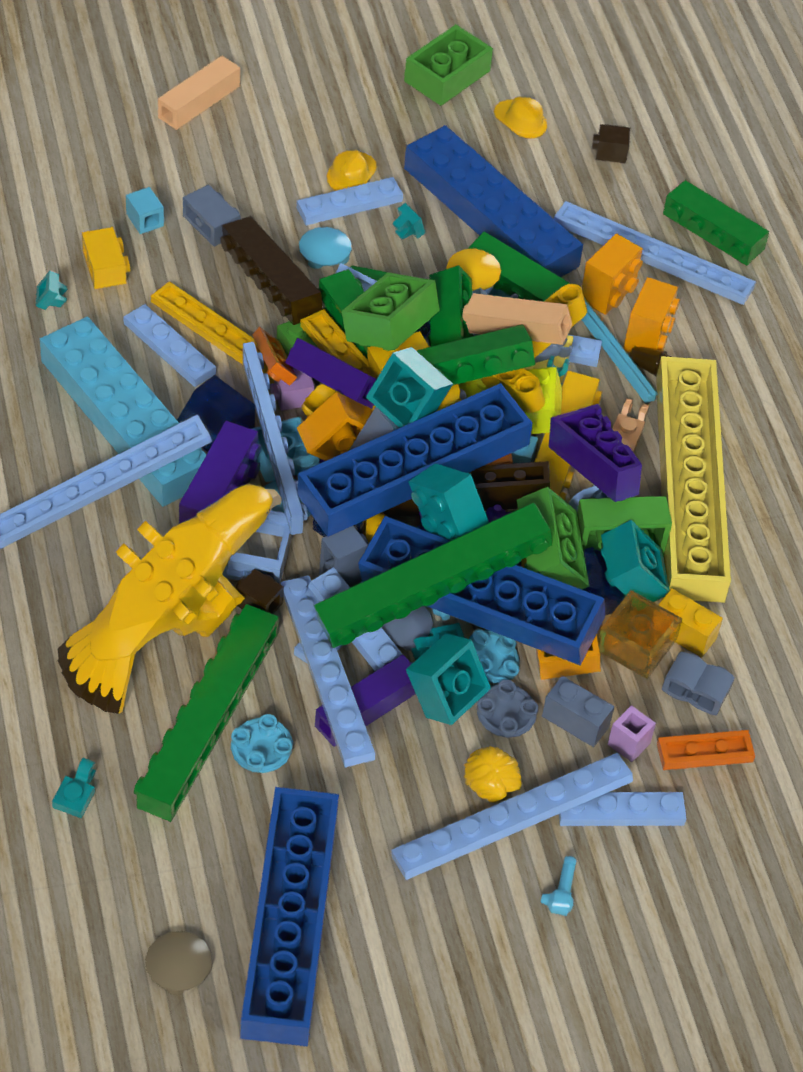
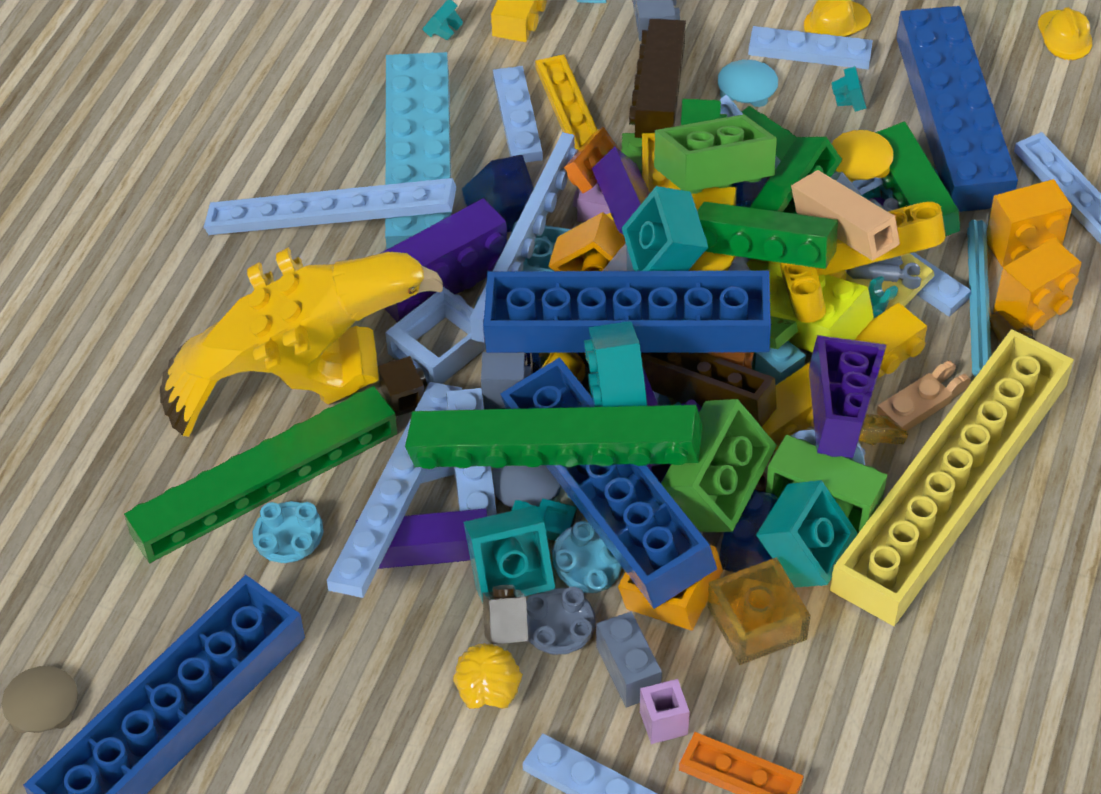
camera: 40 degrees right, 0 degrees up
(76, 793) = (85, 490): teal plate -> none
(475, 723) = (505, 615): none -> brick
(511, 816) = (473, 731): light blue plate -> none
(698, 625) = (831, 631): yellow brick -> none
(698, 683) = (789, 696): sand blue brick -> none

